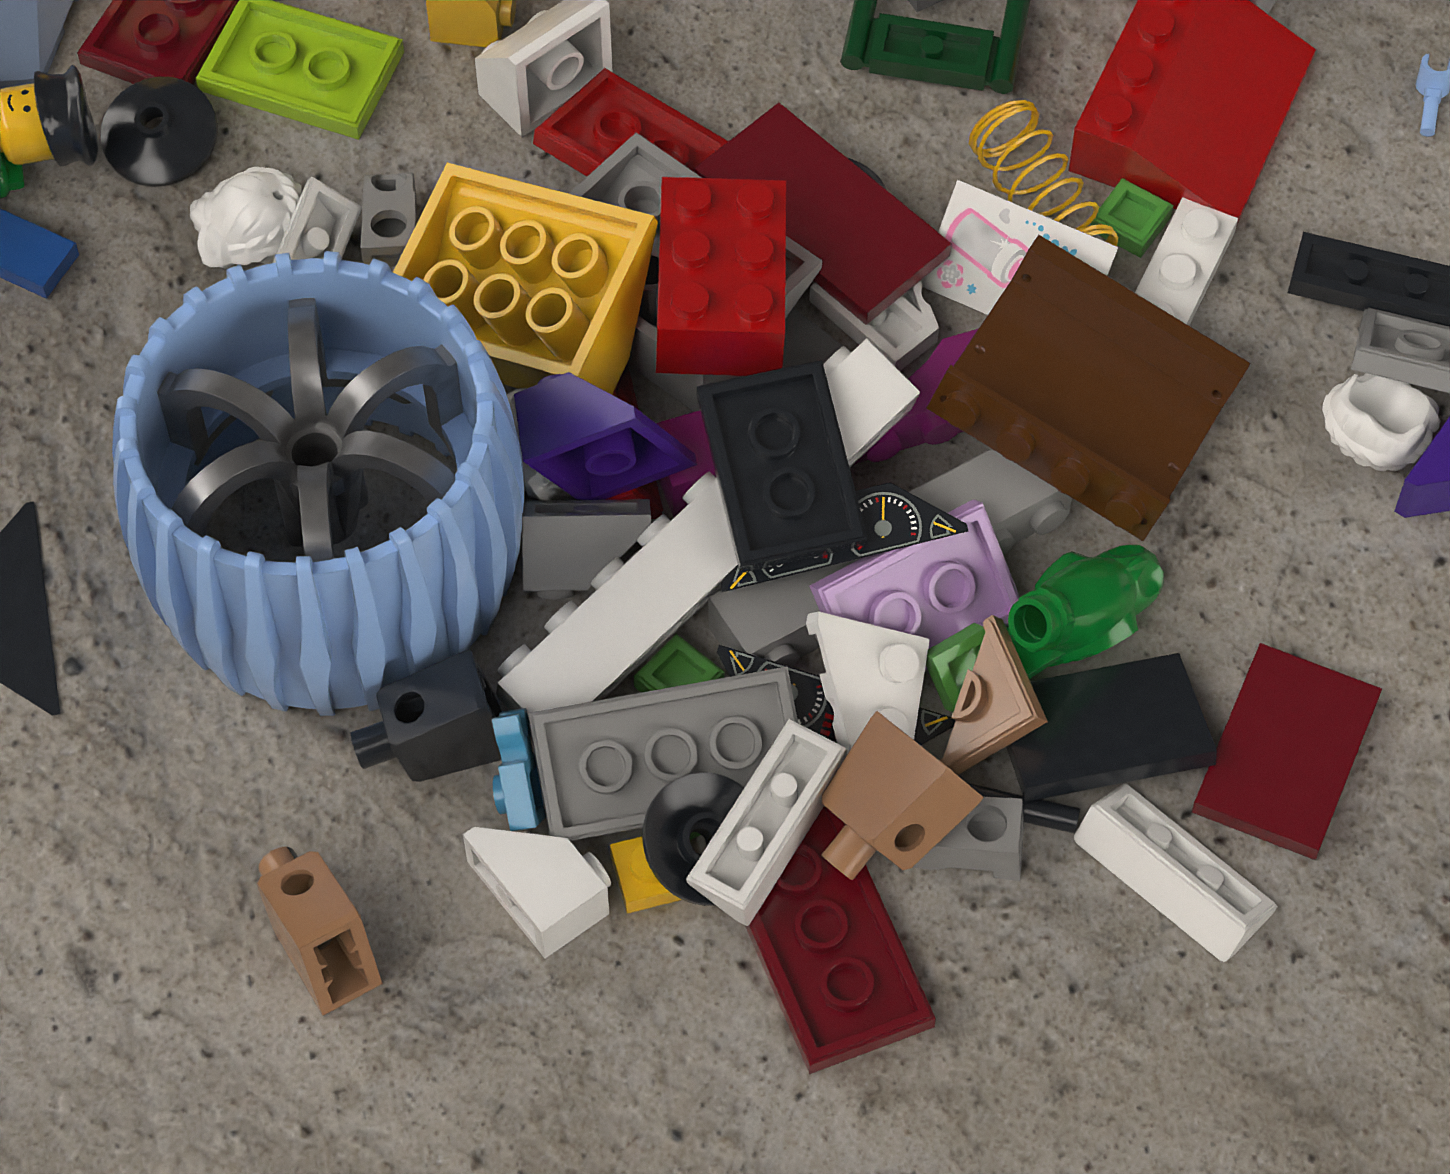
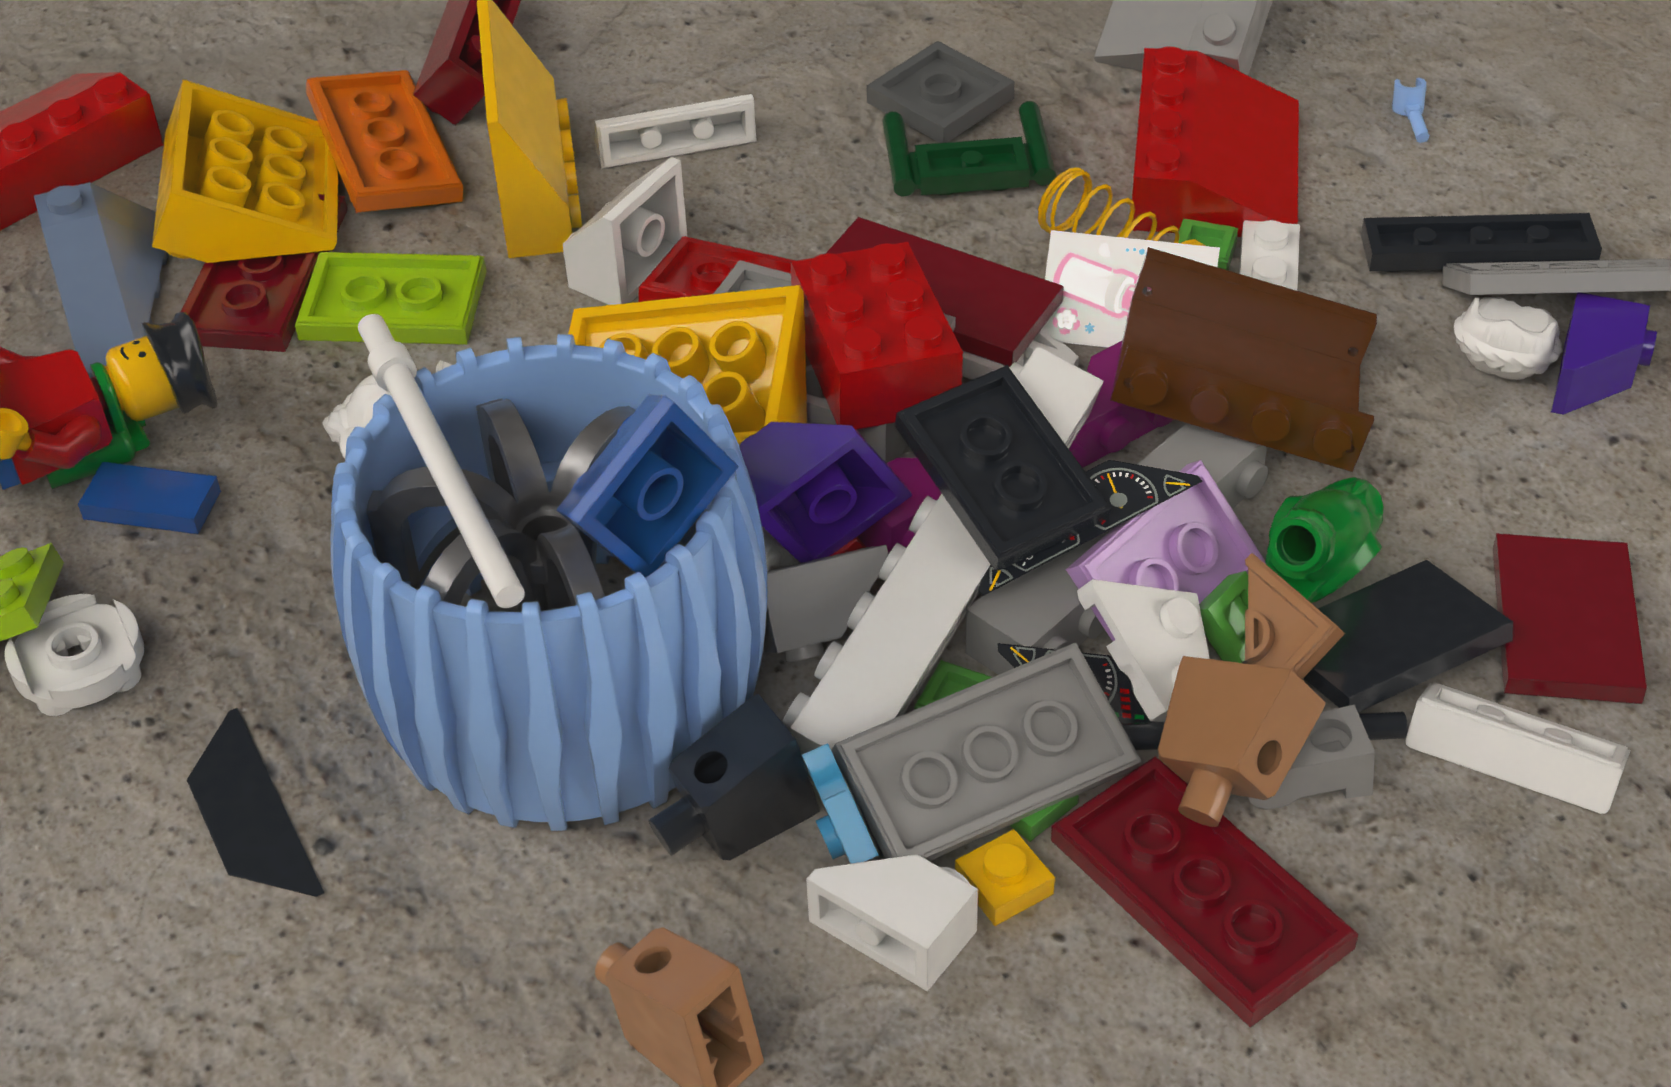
camera: 15 degrees left, 15 degrees down
(172, 148) = (271, 374): black dish -> none
(209, 267) = (396, 373): none -> white bar
(386, 466) = (648, 485): none -> blue slope
(685, 806) = (1058, 821): black dish -> none
(767, 822) = (1113, 789): white slope -> none

